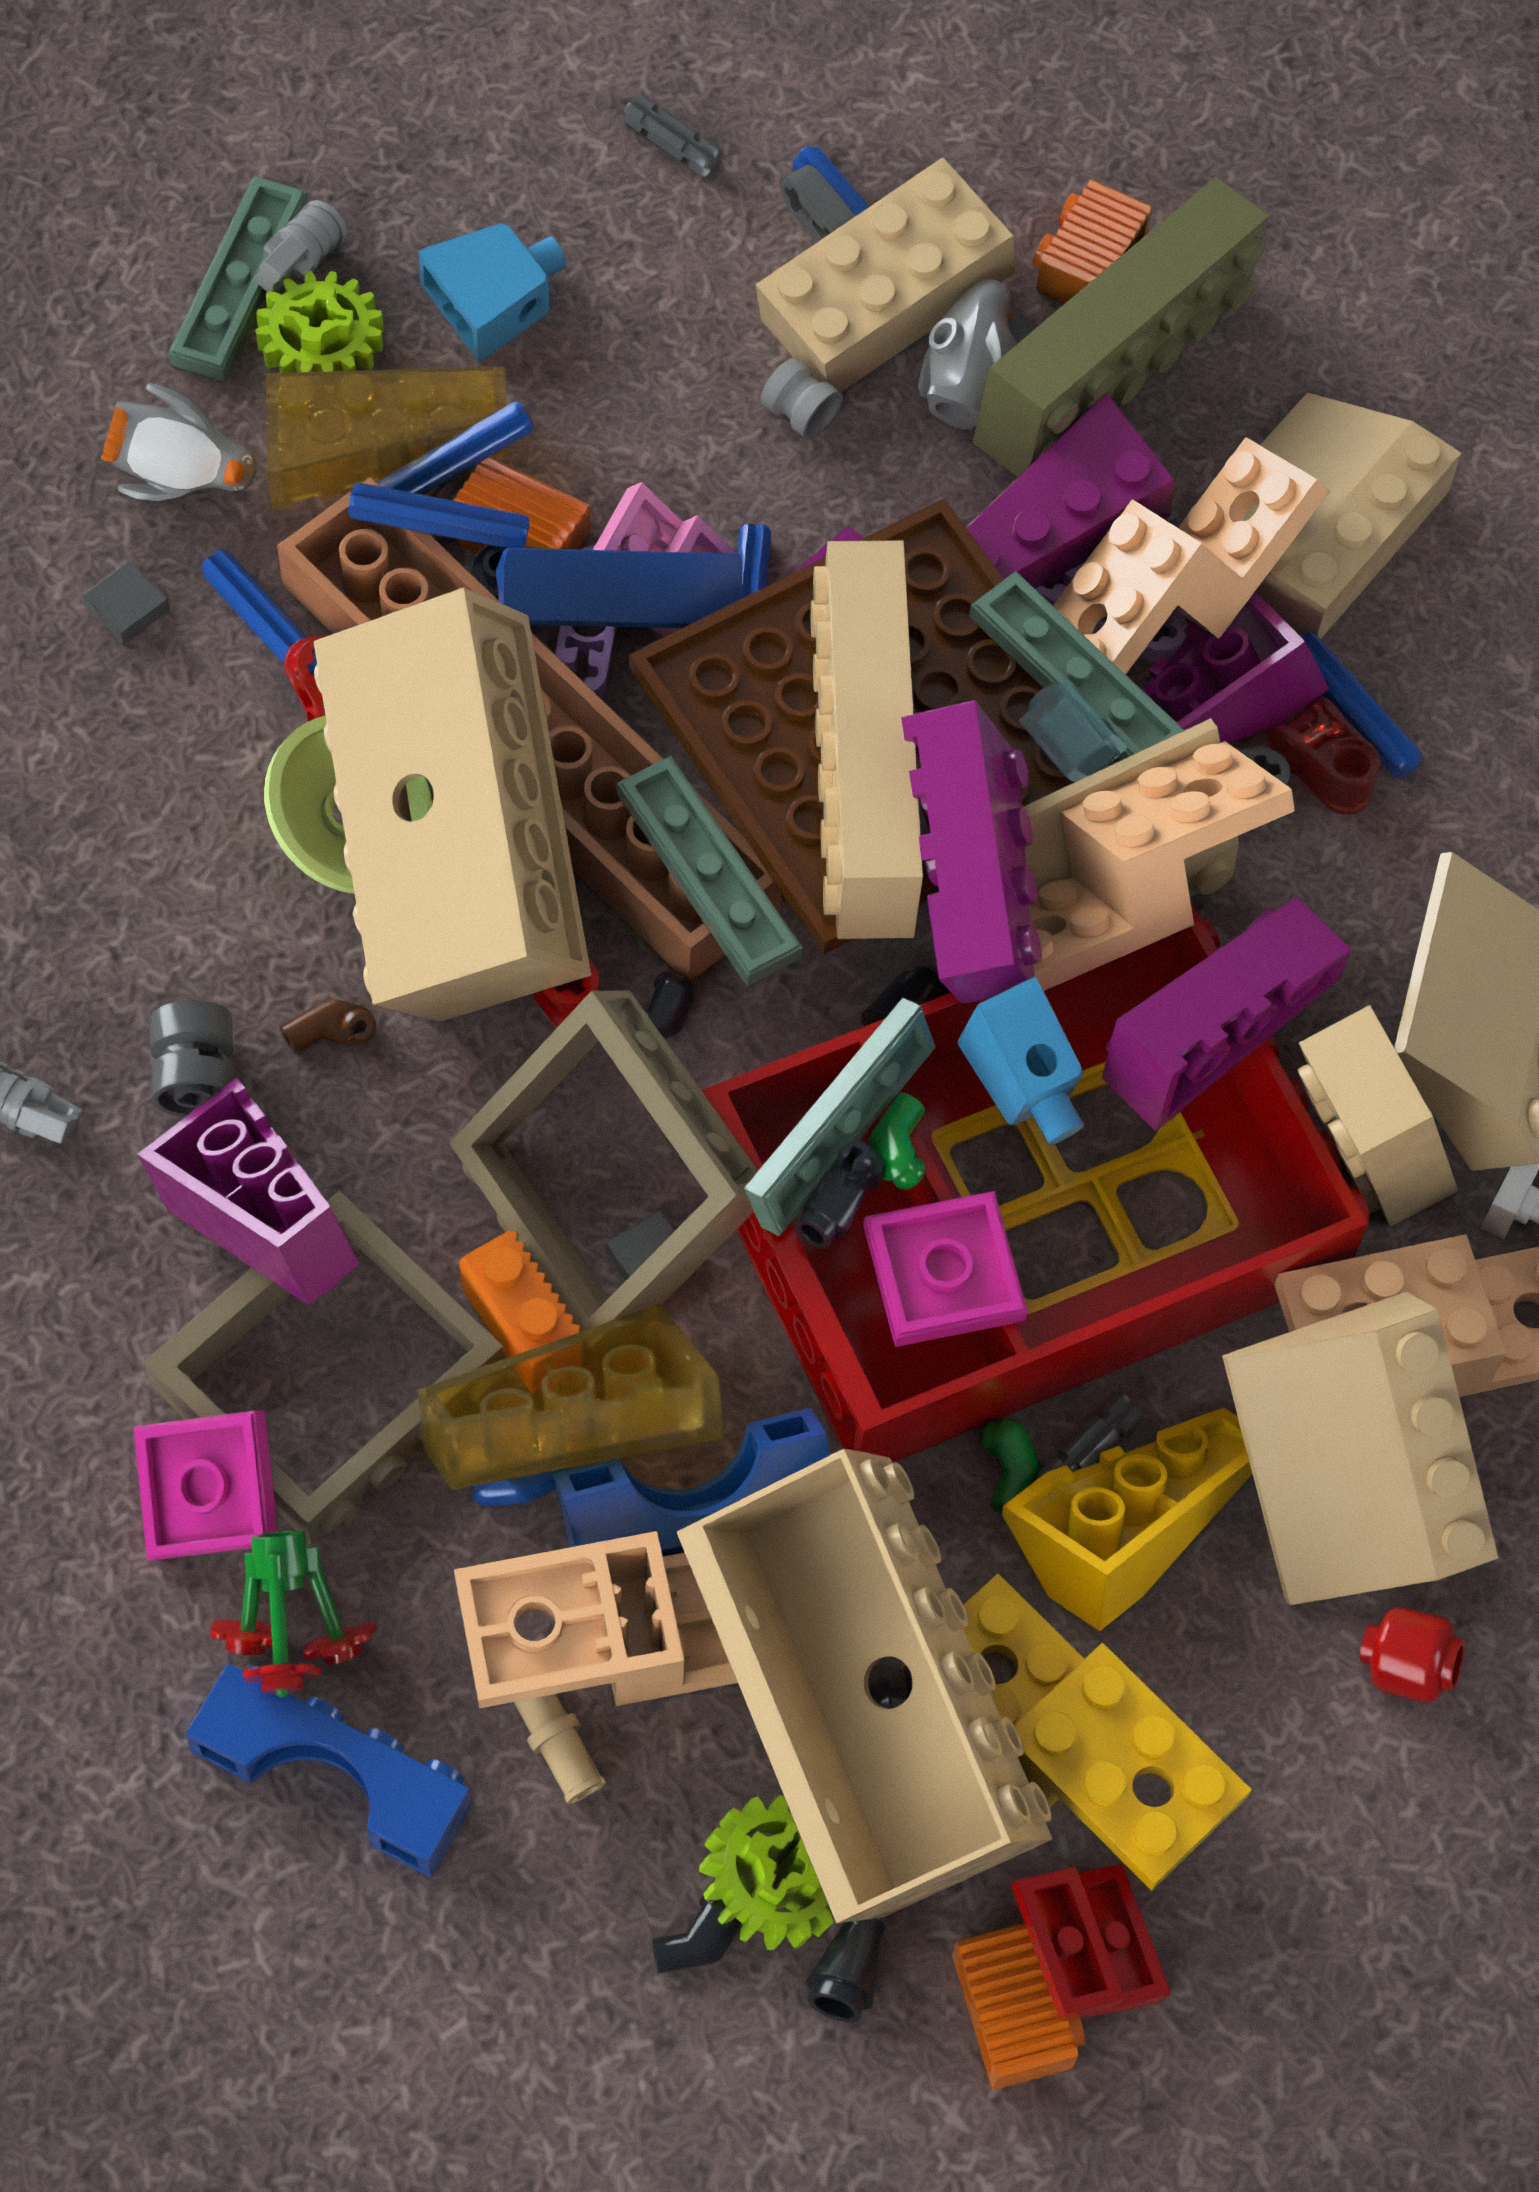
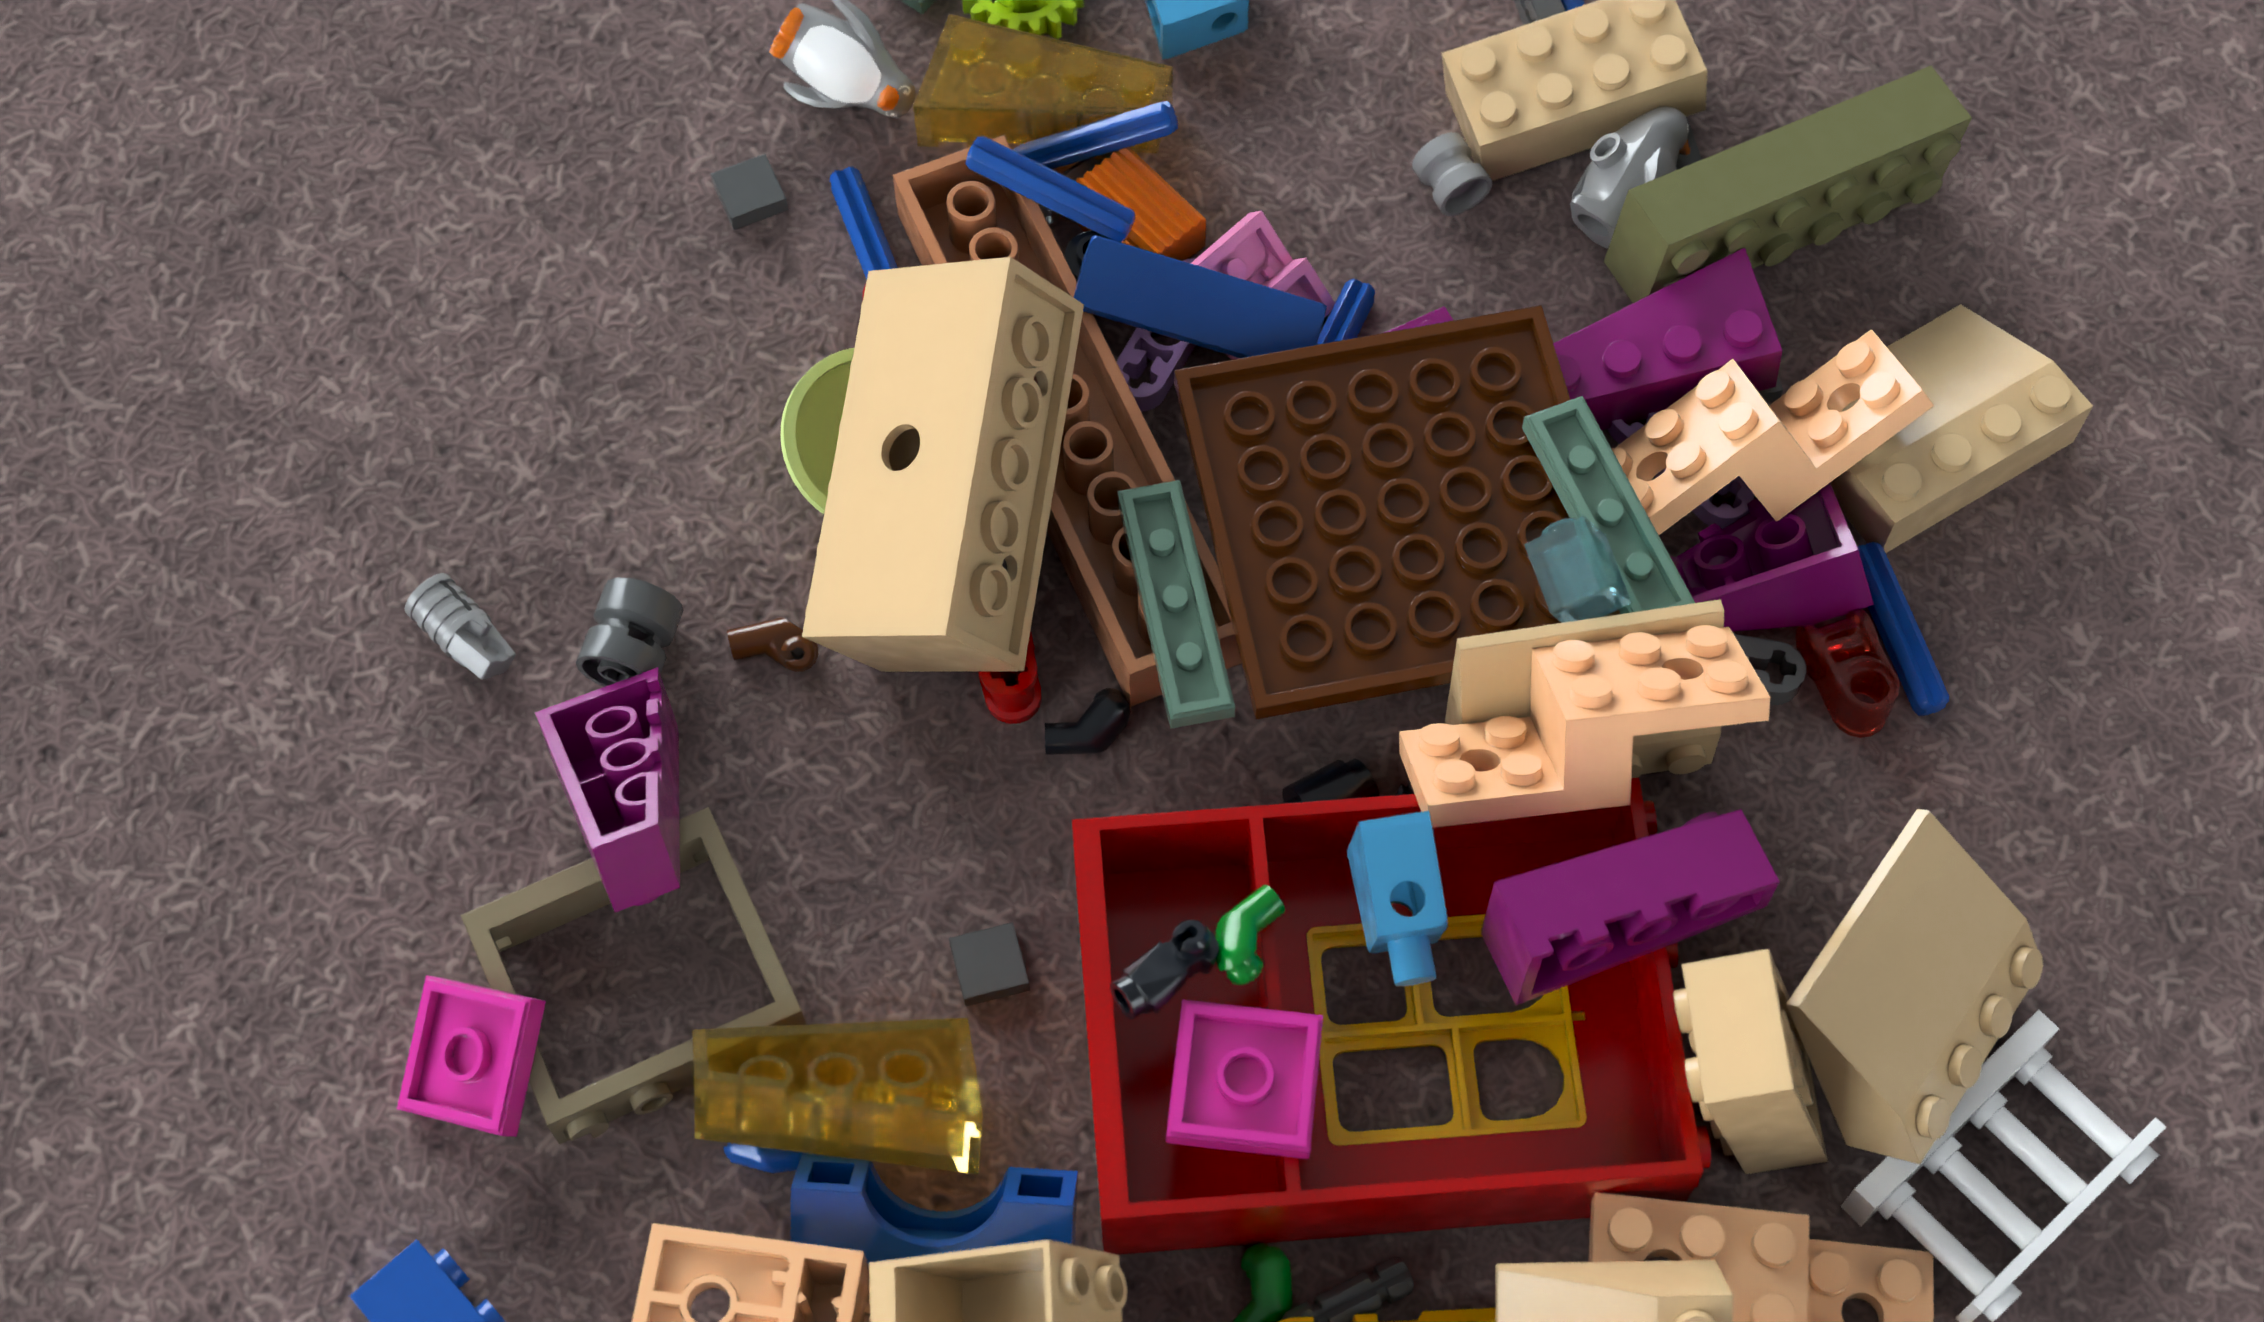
camera: 25 degrees right, 0 degrees up
(278, 1565) = (496, 1161): plant -> none
(513, 1296) = (836, 963): orange brick -> none
(679, 1111) = (1039, 842): dark tan window -> none
(840, 1116) = (1195, 889): sand green tile -> none
(865, 761) = (1361, 520): tan brick -> none
(975, 850) = (1421, 663): magenta wedge -> none
(1091, 237) = (1792, 89): orange brick -> none

